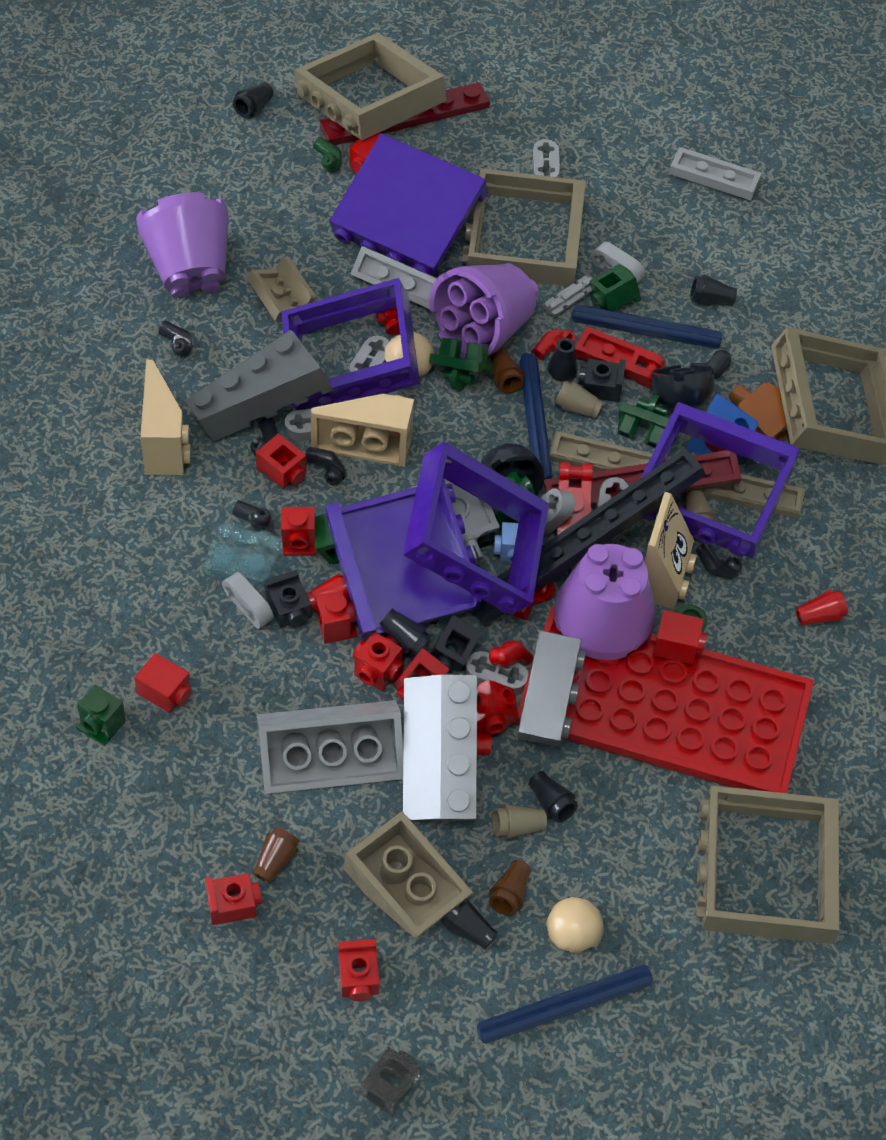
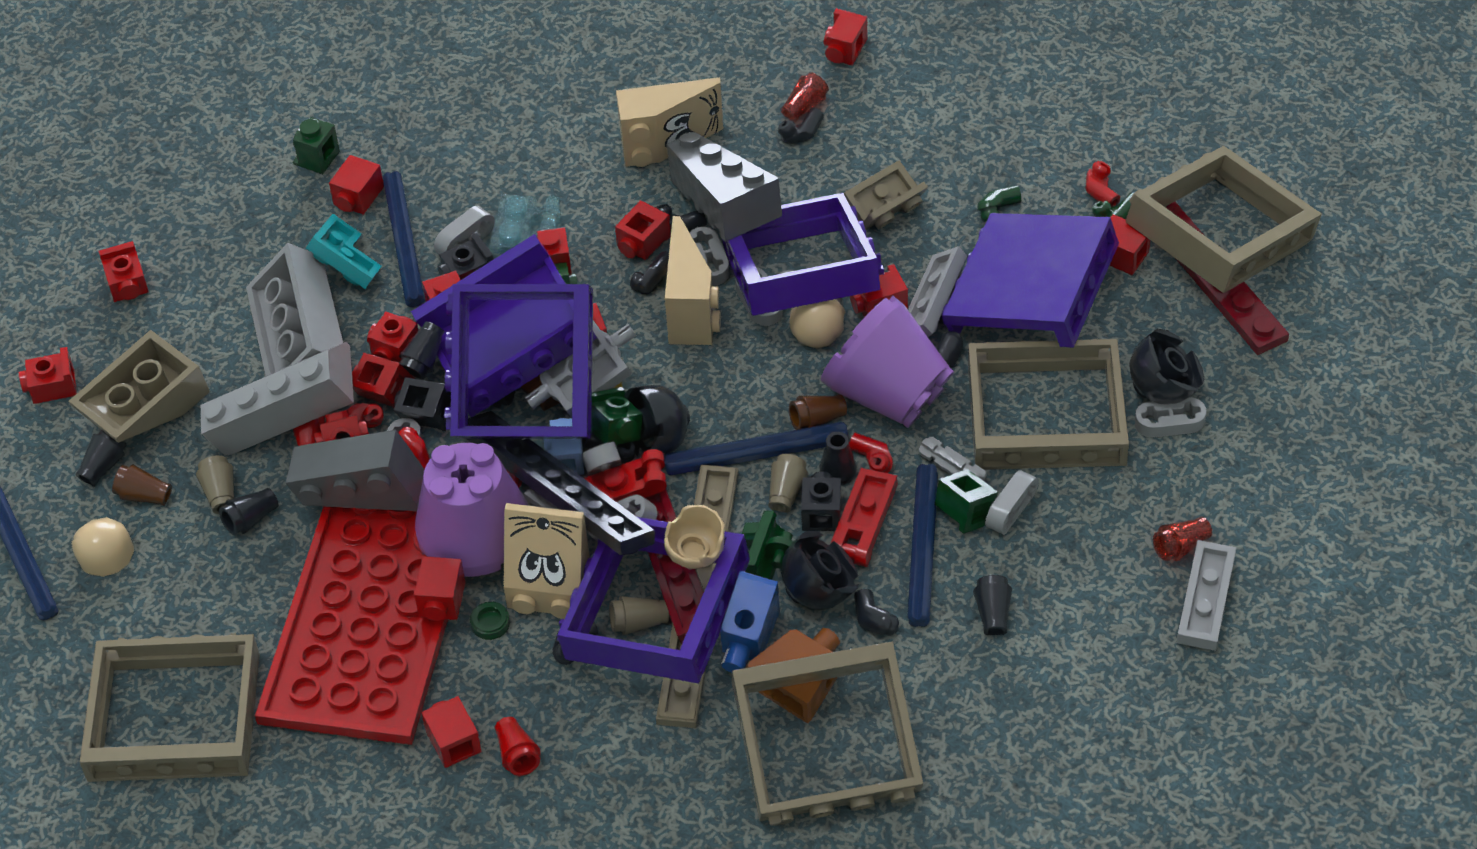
camera: 90 degrees right, 5 degrees down
(80, 289) = (846, 37): none -> red brick
(143, 329) = (807, 94): none -> clear red cone
(187, 241) = (911, 97): medium lavender cone -> none
(240, 653) = (403, 239): none -> dark blue axle
(250, 100) = (1182, 129): black cone -> none
(253, 700) = (335, 247): none -> teal plate
(257, 517) = (575, 226): black arm -> none
(275, 854) = (176, 300): reddish brown cone -> none
(297, 162) = (1097, 184): none -> red arm
(300, 227) = (998, 198): none -> dark green arm
(474, 361) = (810, 359): dark green hips -> none
(513, 150) = (1164, 370): none -> black cylinder
(664, 178) = (1180, 538): none -> clear red cone
(689, 425) = (695, 537): none -> tan hair
(809, 650) = (451, 731): none -> red brick

